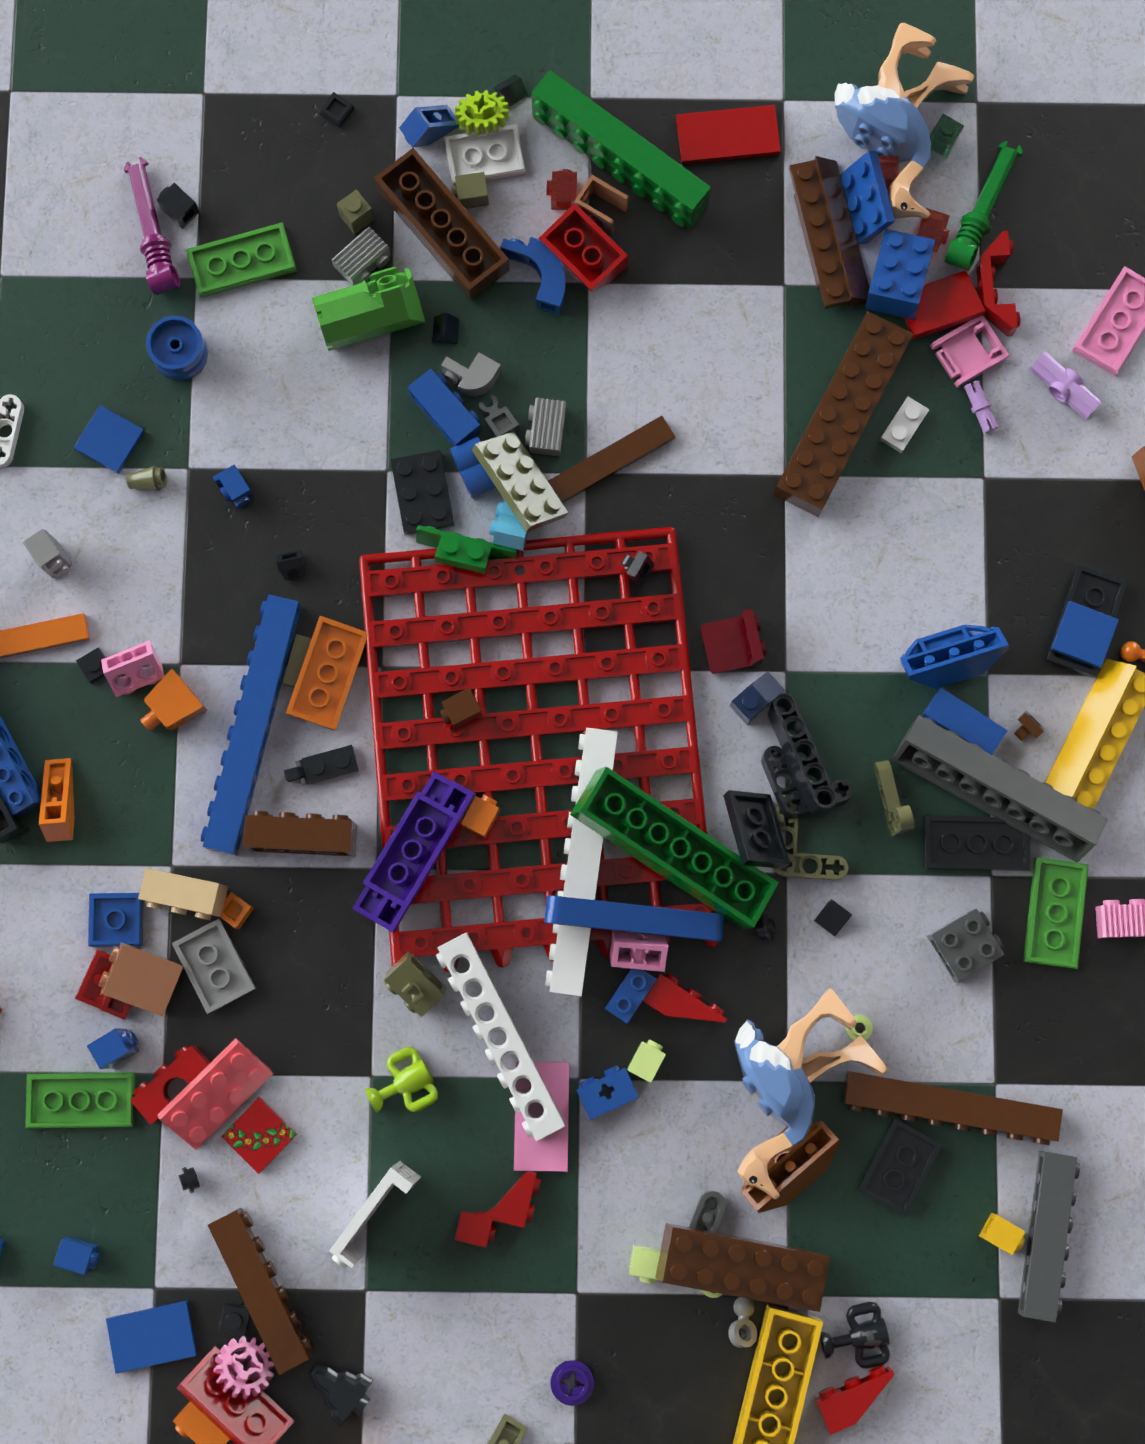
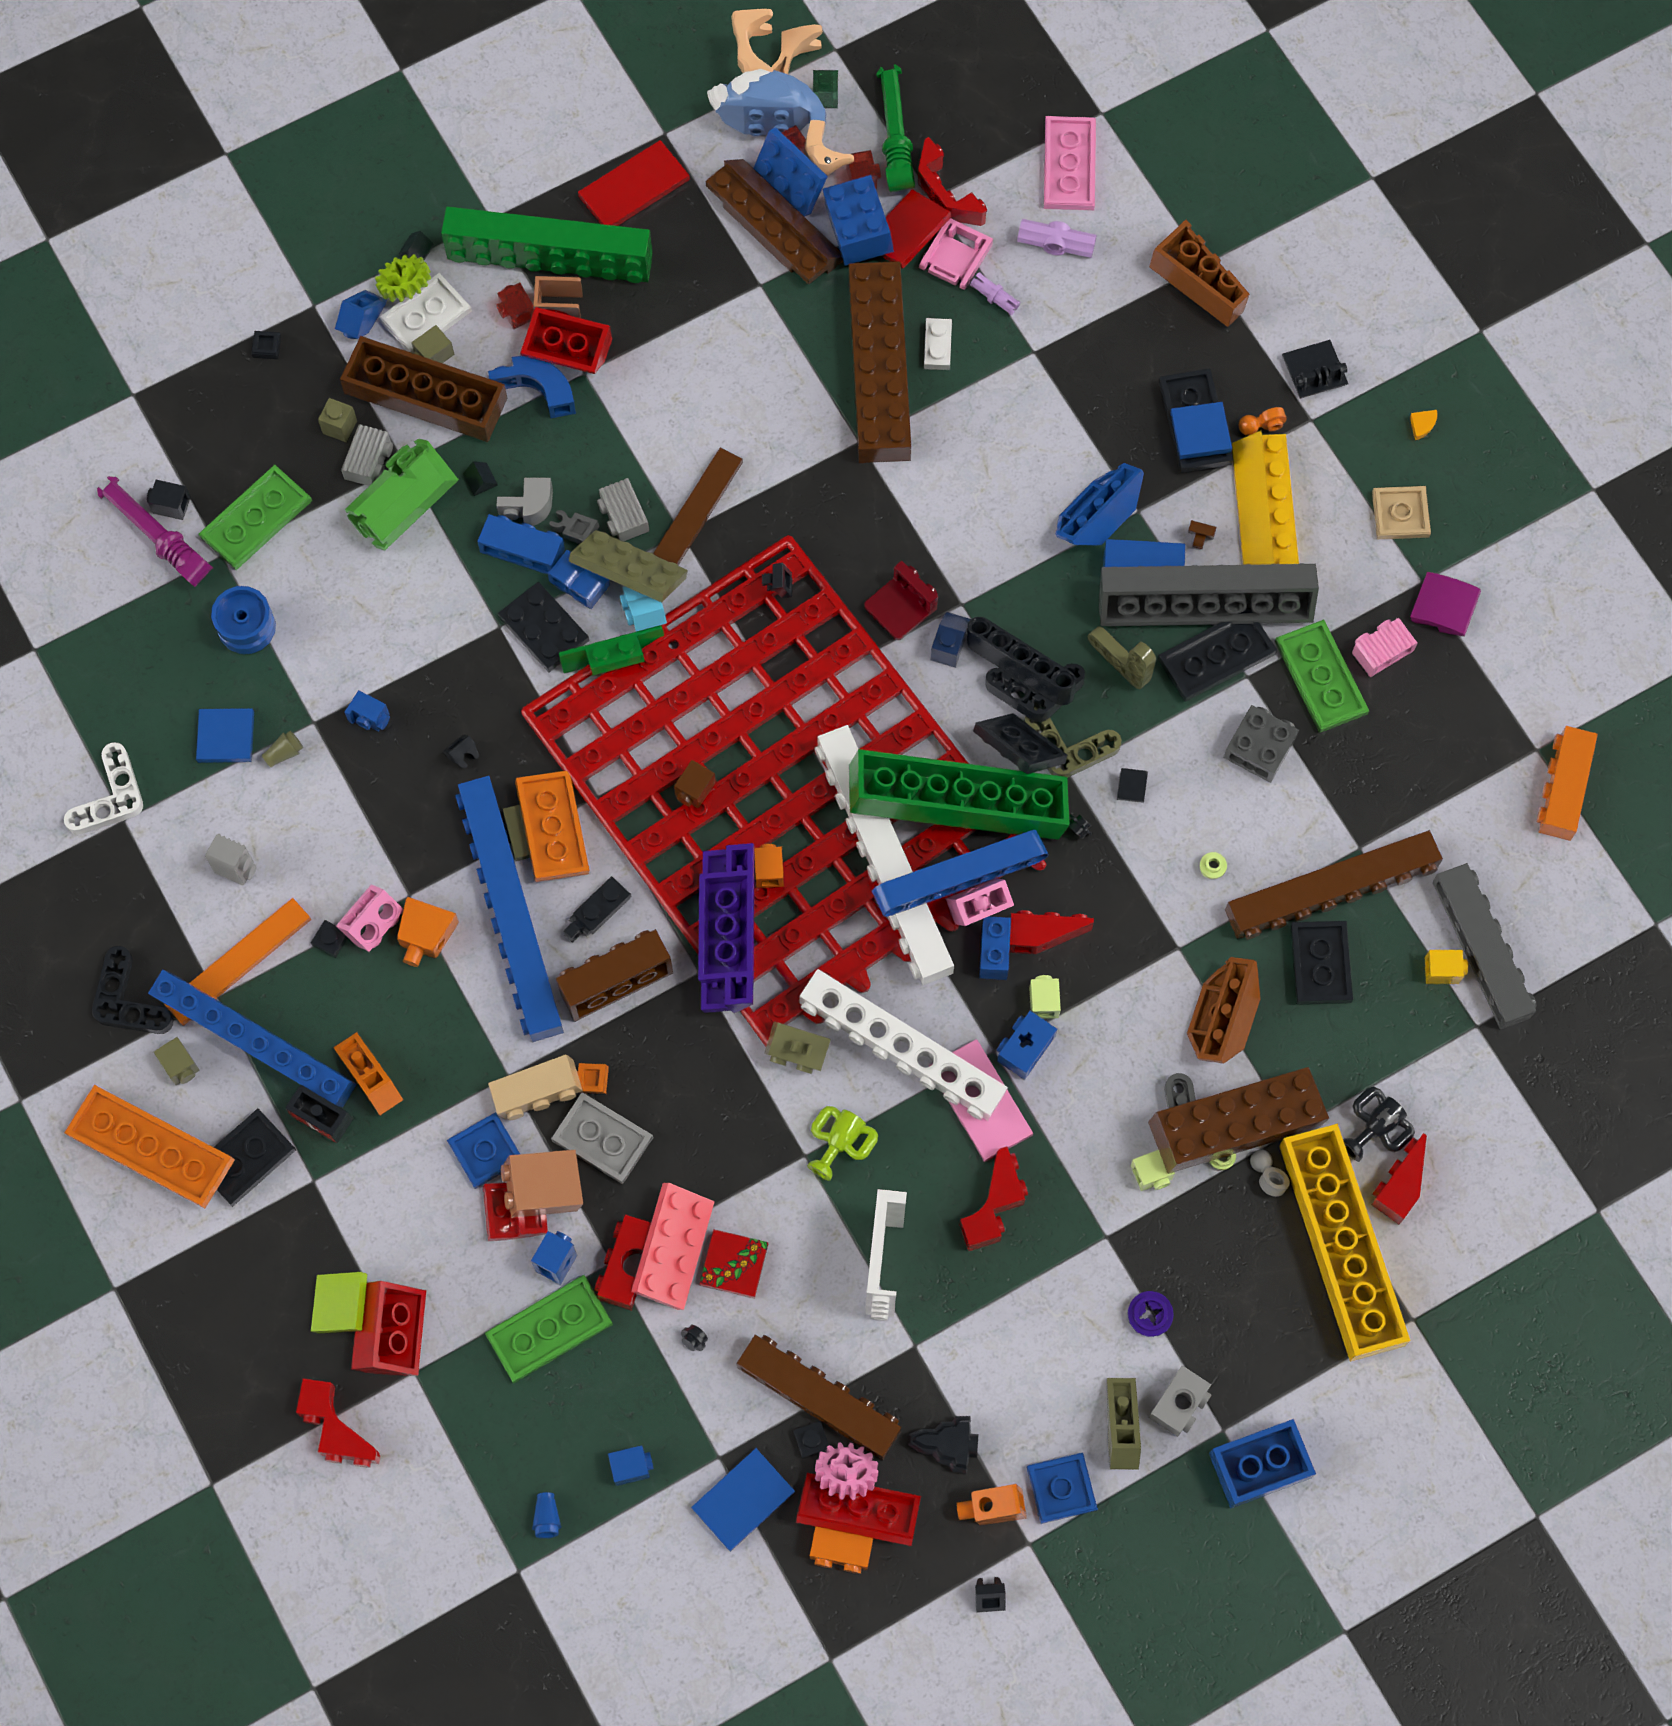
camera: 30 degrees left, 10 degrees down
(784, 1080) = (1175, 940): animal -> none

